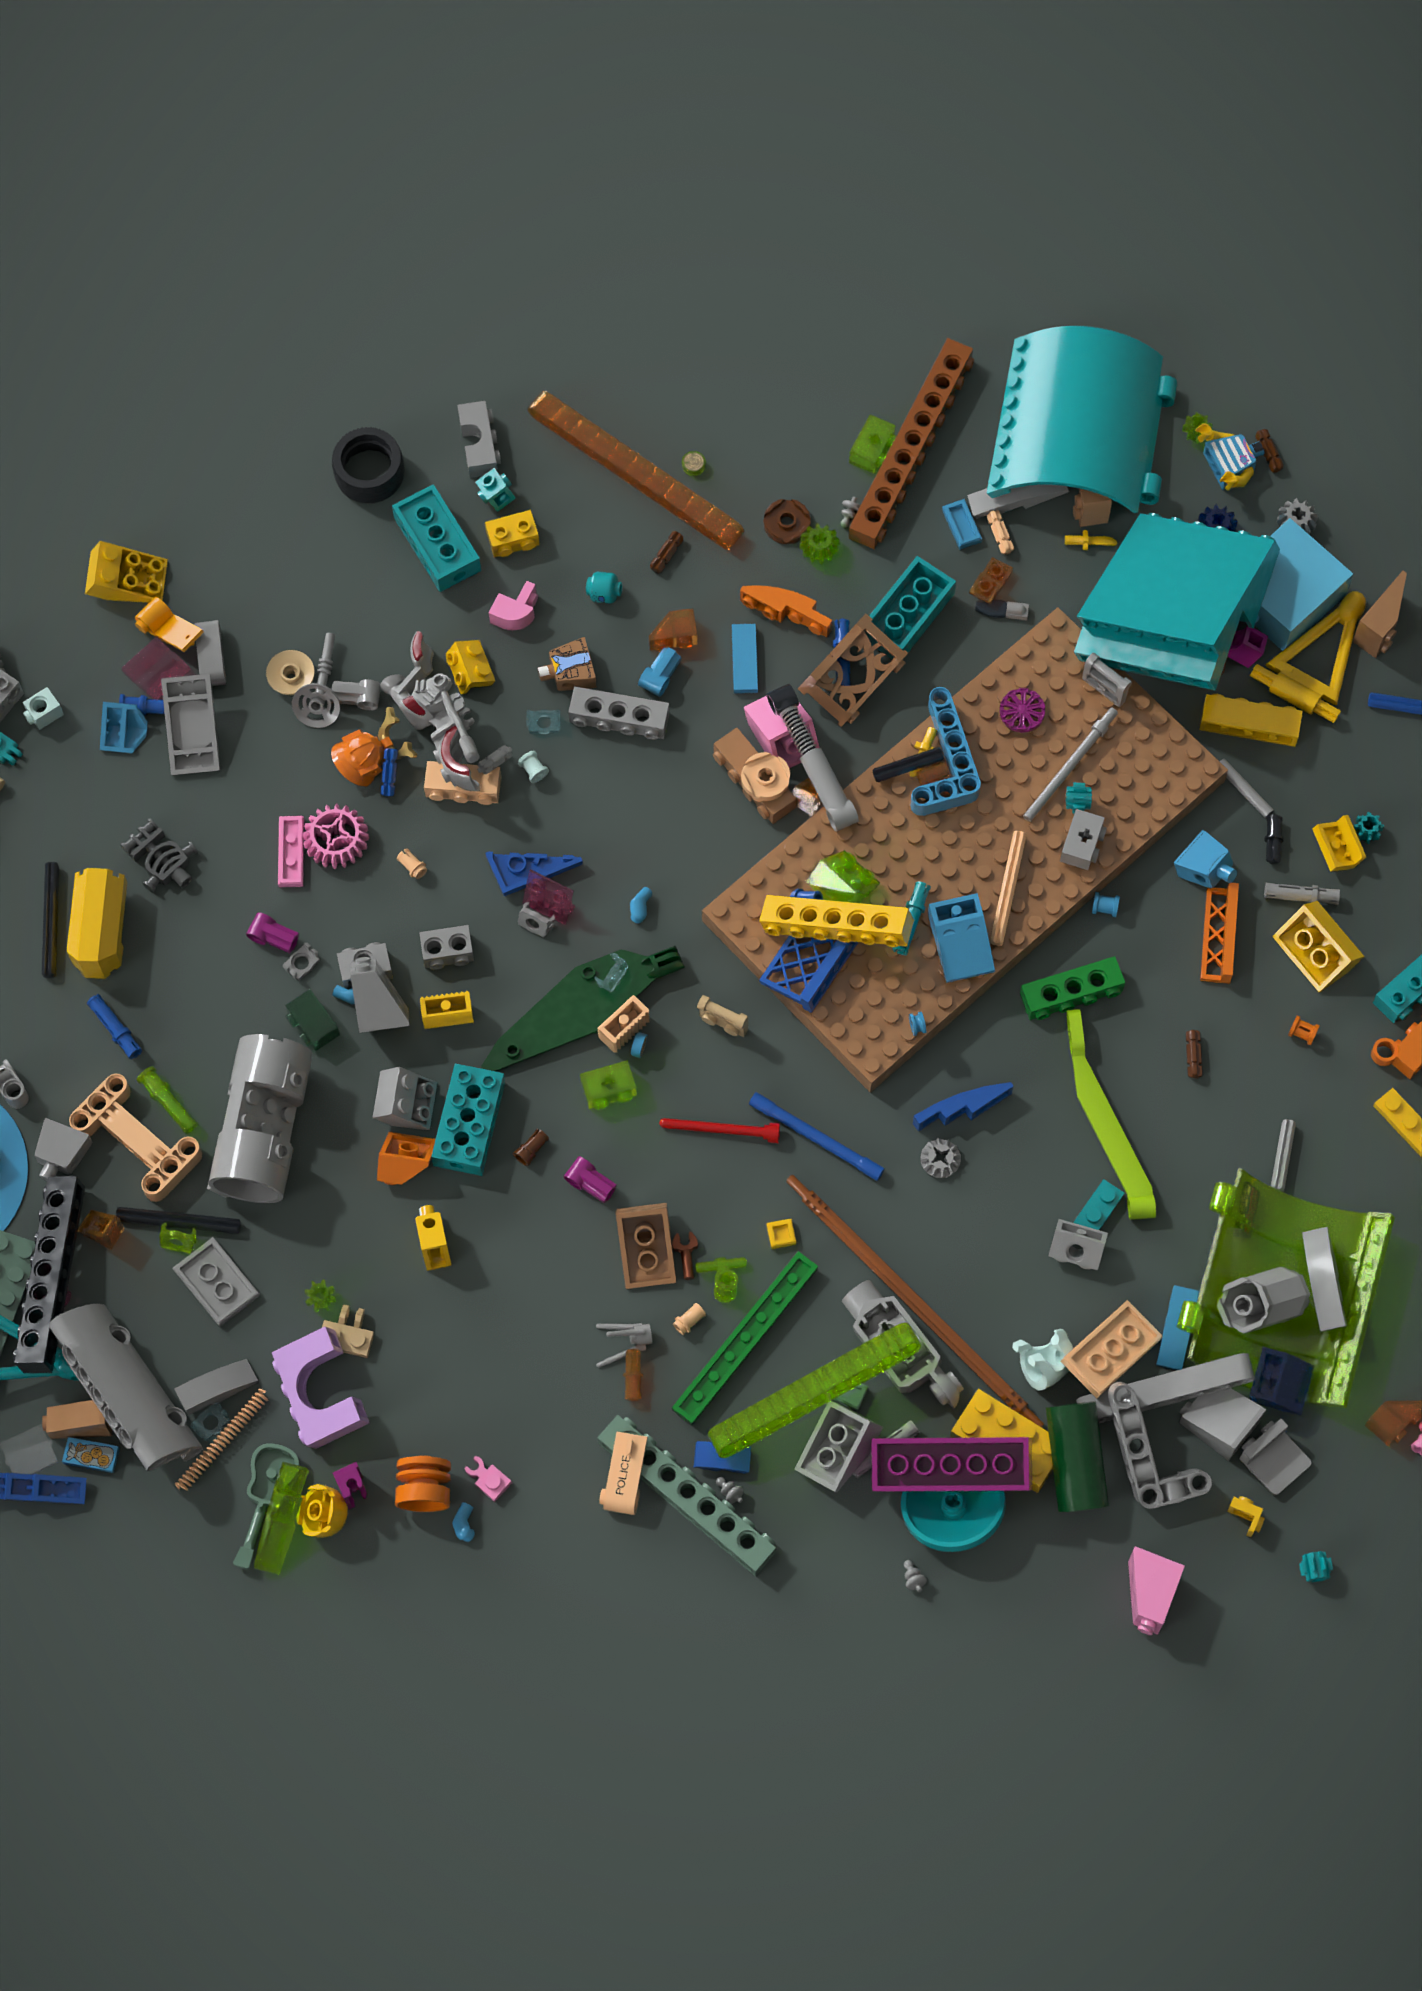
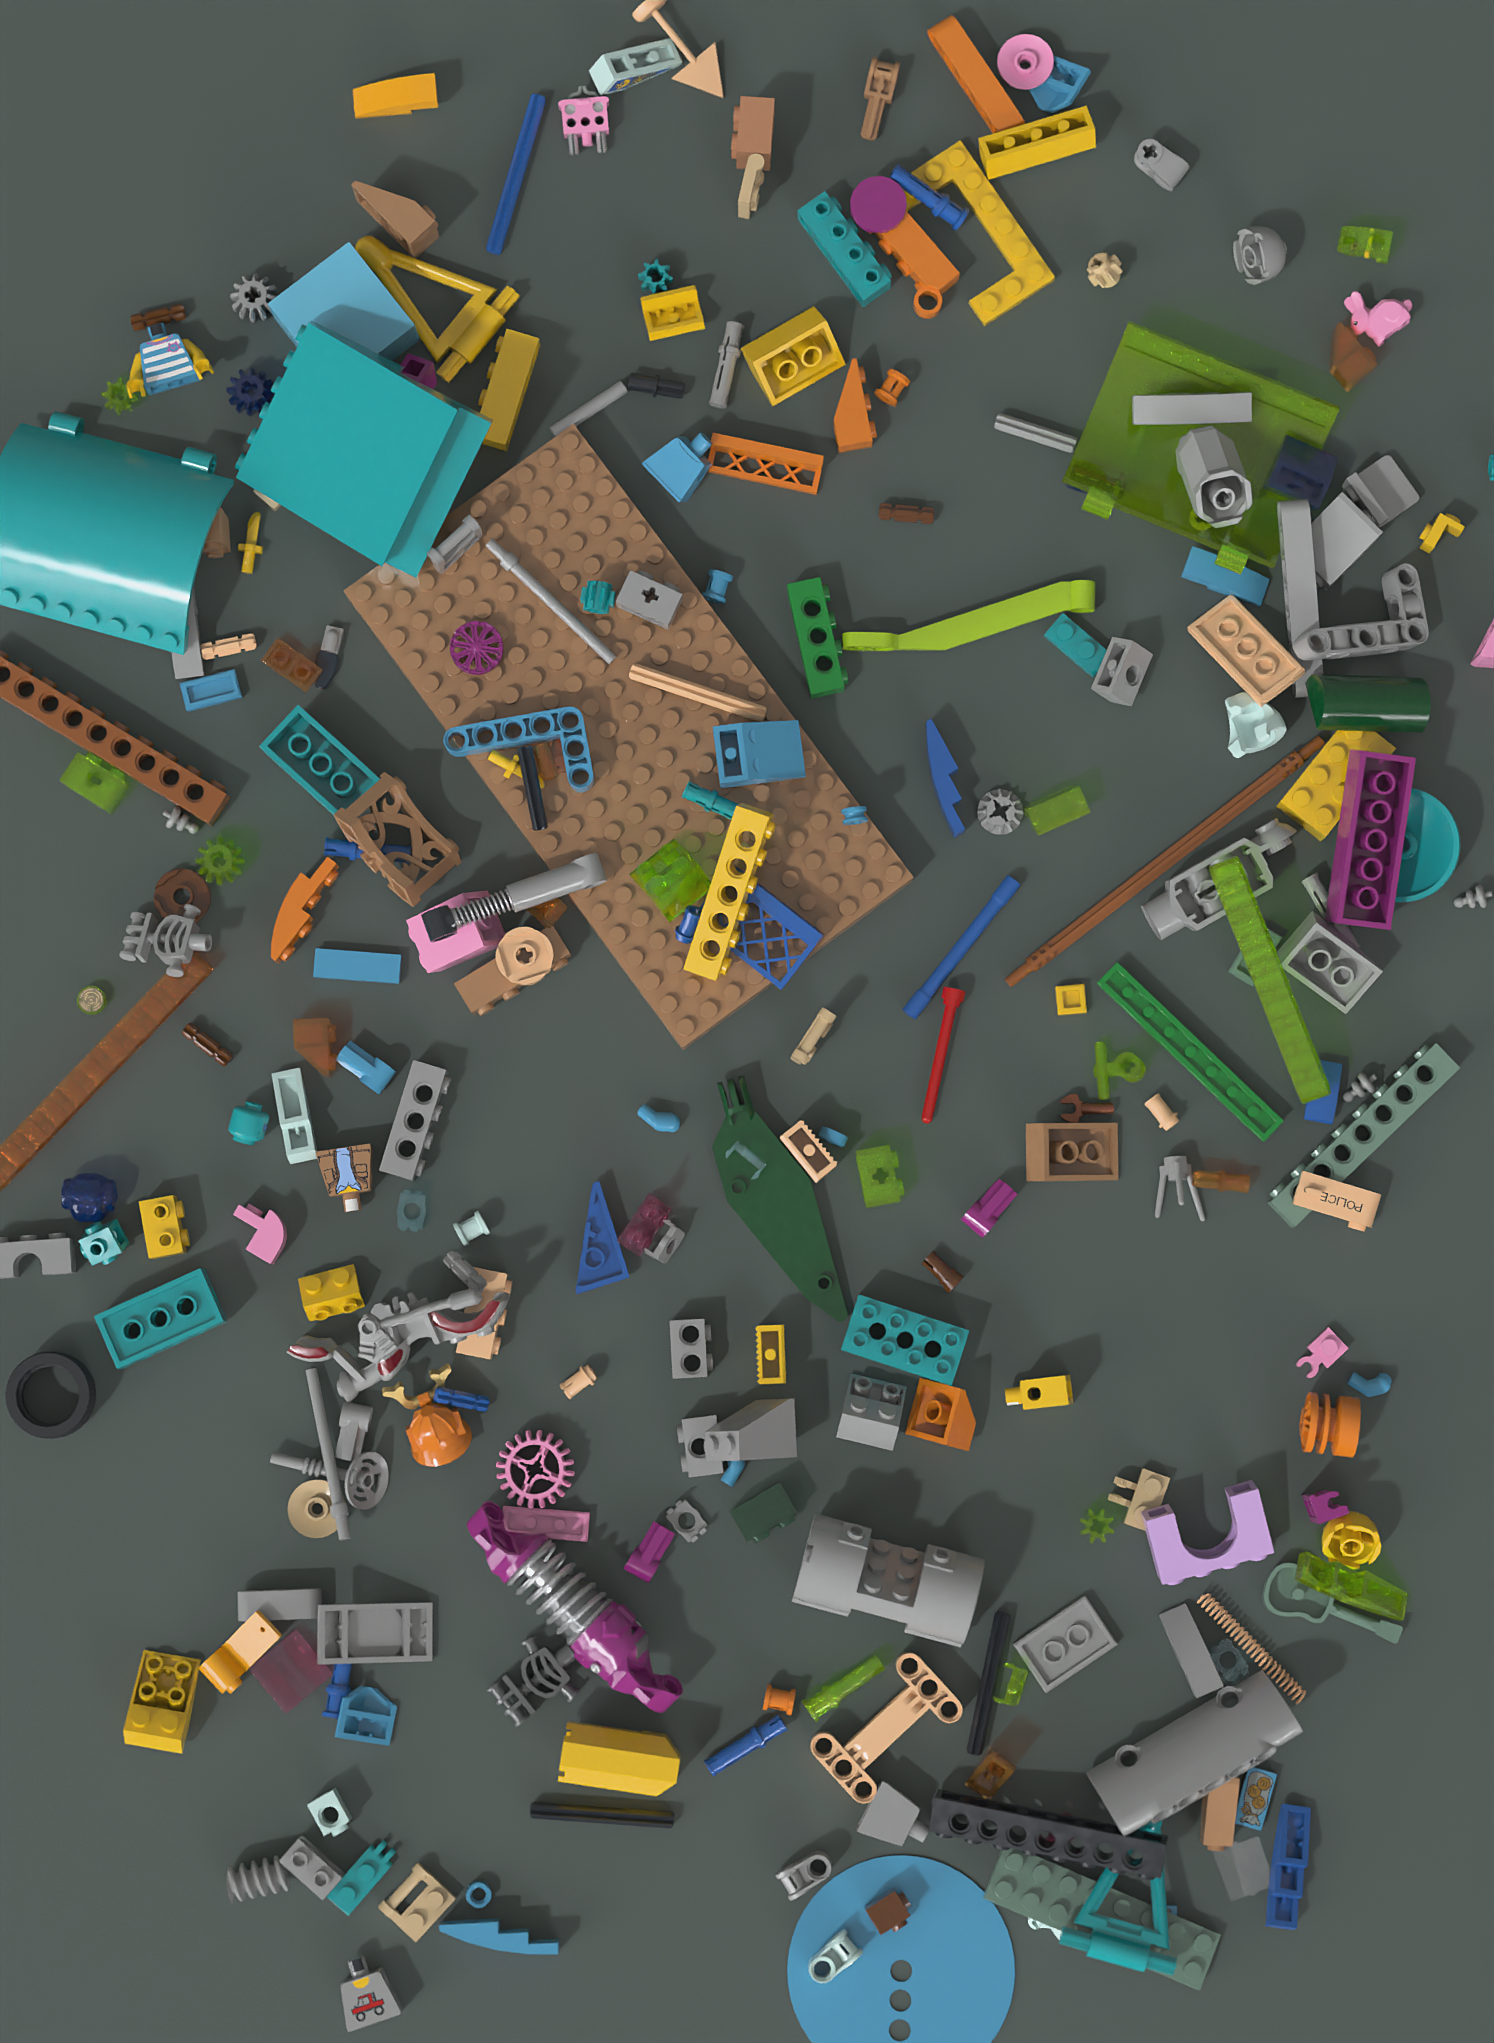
camera: 85 degrees left, 15 degrees up
(154, 1048) = (779, 1699): none -> orange bush
(205, 892) = (598, 1629): none -> magenta piece
(290, 686) = (339, 1509): none -> light grey bar
(531, 476) = (89, 1196): none -> clear blue hair
(613, 622) = (294, 1115): none -> light aqua slope
(748, 508) = (174, 932): none -> light grey piece
(947, 1202) = (1056, 809): none -> clear neon green hinge
(1272, 998) = (851, 420): none -> orange slope

